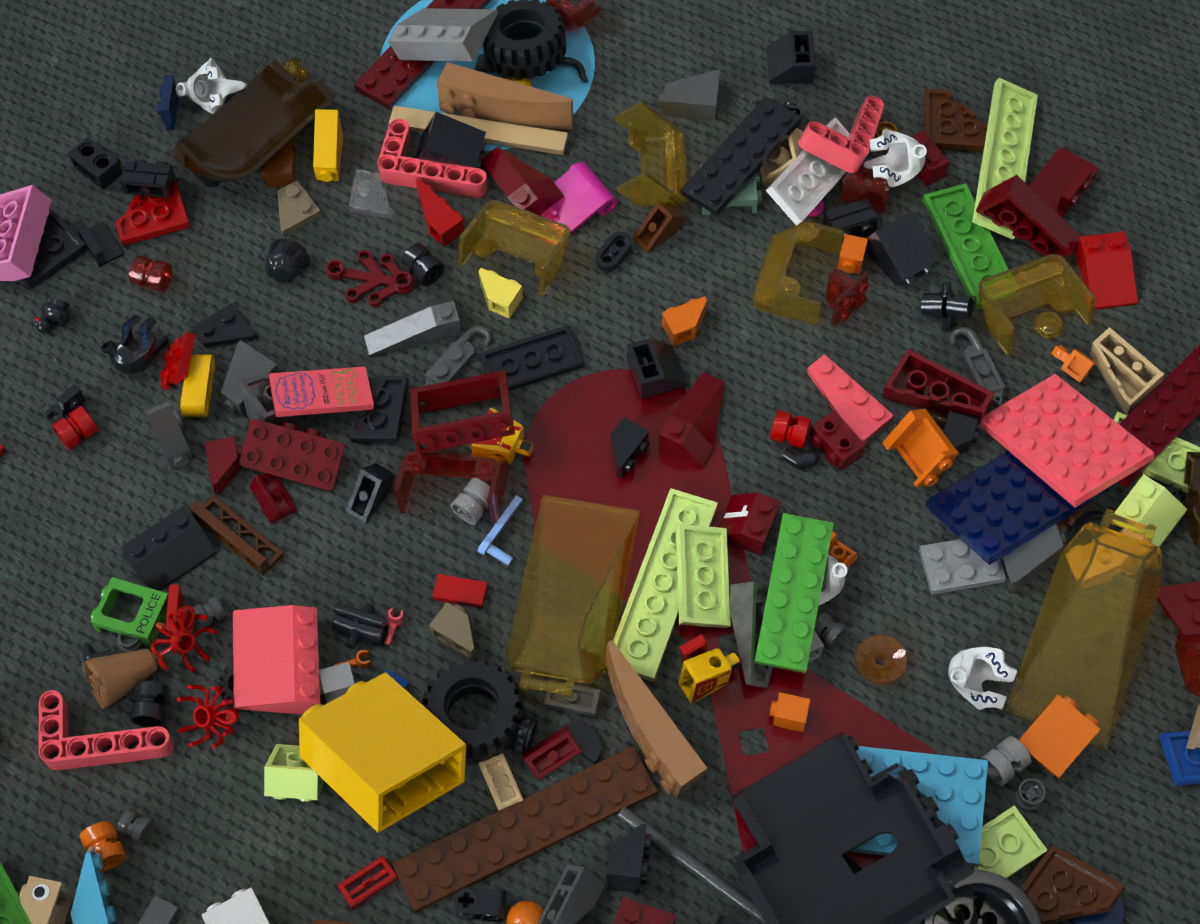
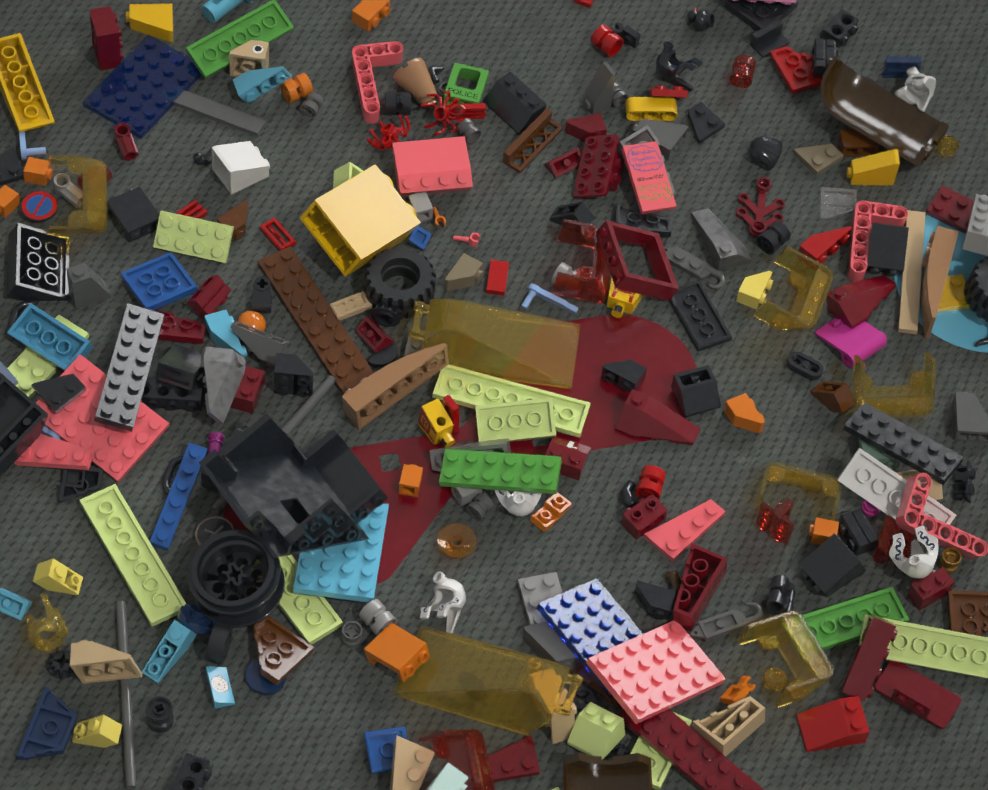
camera: 80 degrees right, 5 degrees down
(359, 624) = (464, 216): black pin -> none
(922, 446) = (654, 562): orange panel -> none

